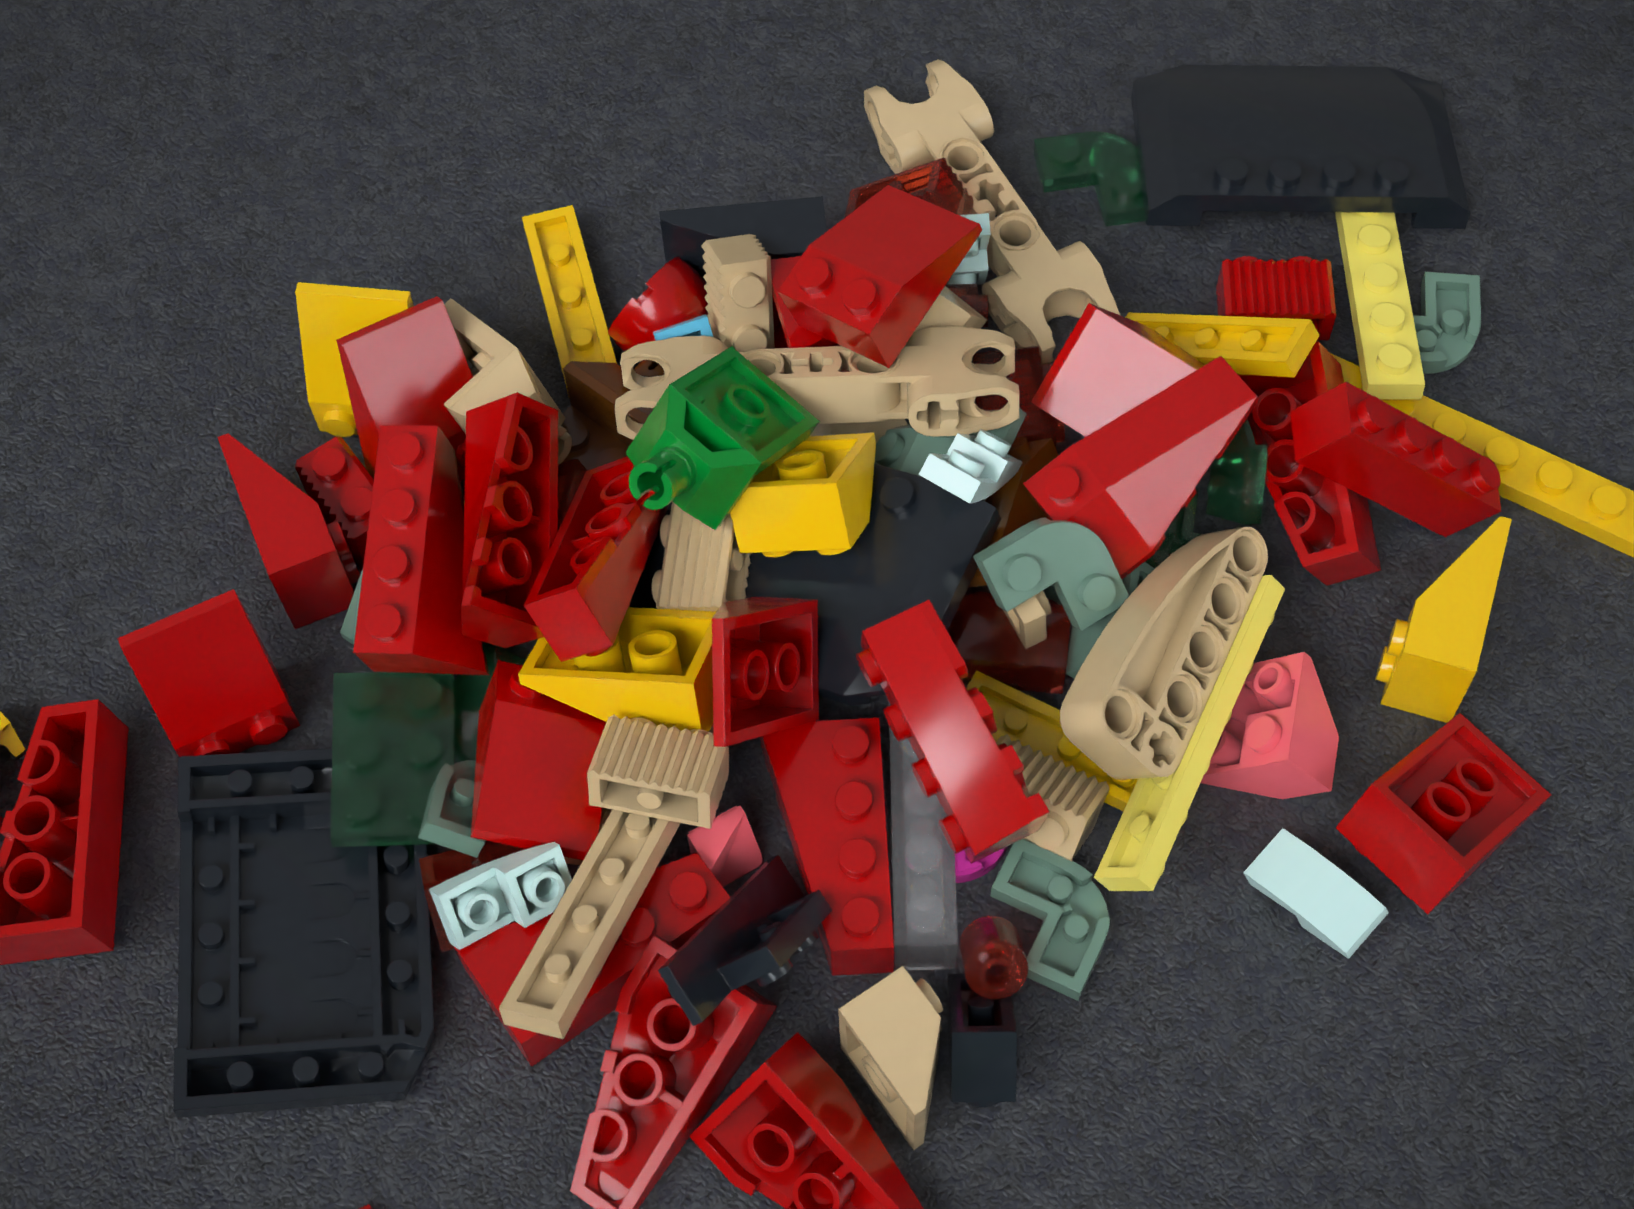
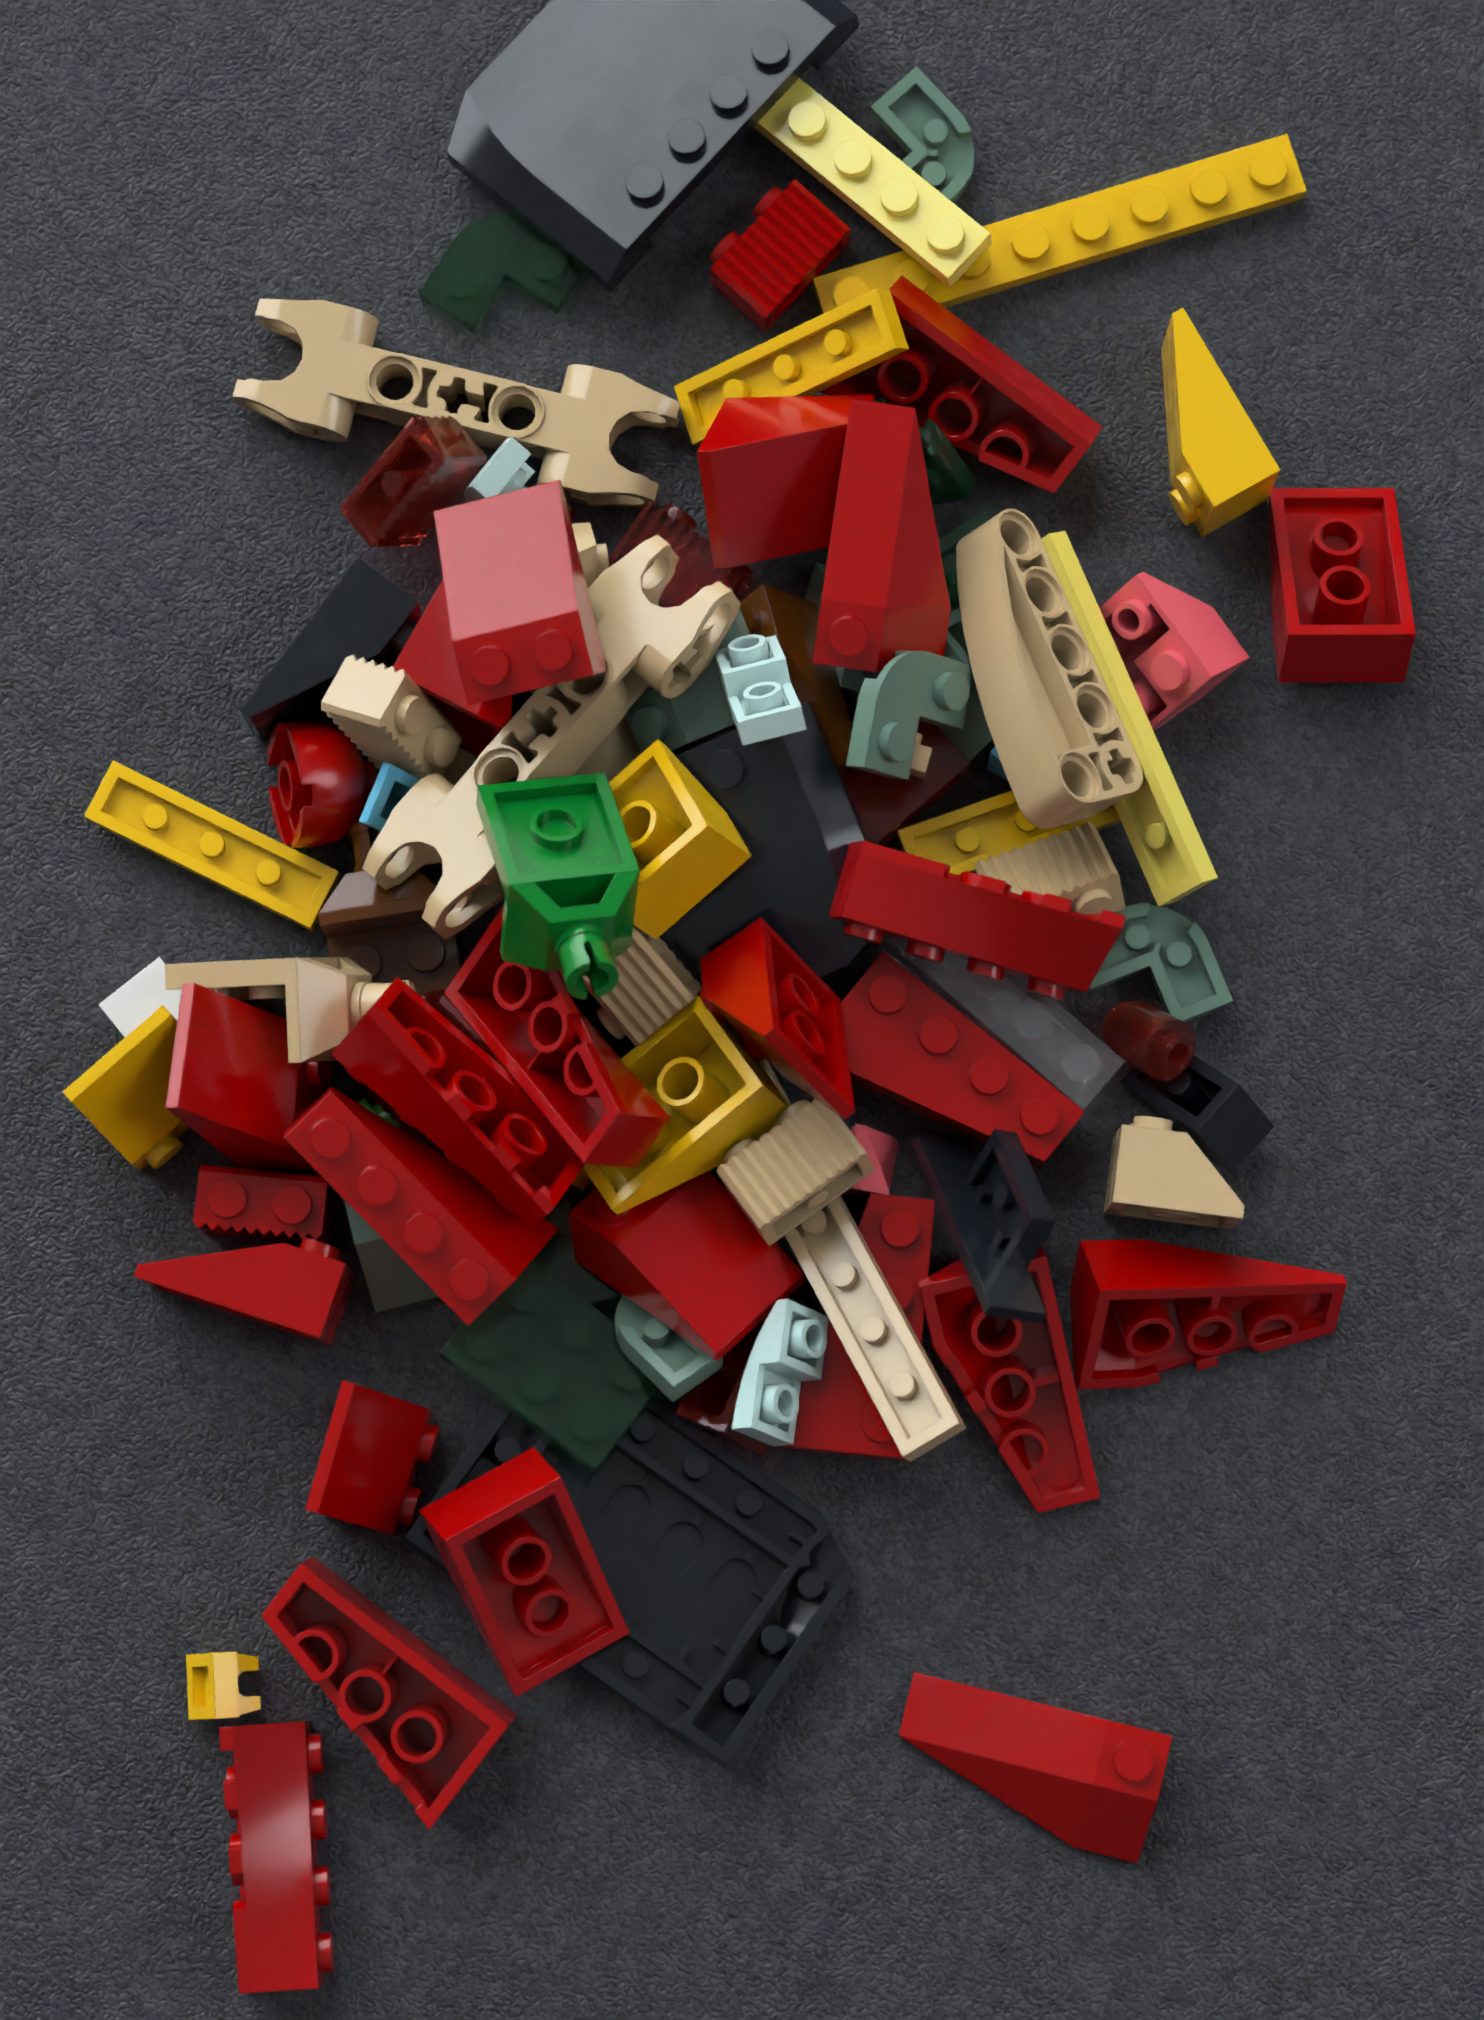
camera: 50 degrees left, 20 degrees up
(209, 849) = (525, 1570): none -> red slope
(1316, 892) = (1312, 748): light aqua slope -> none
(1395, 460) = (1046, 338): red brick -> none

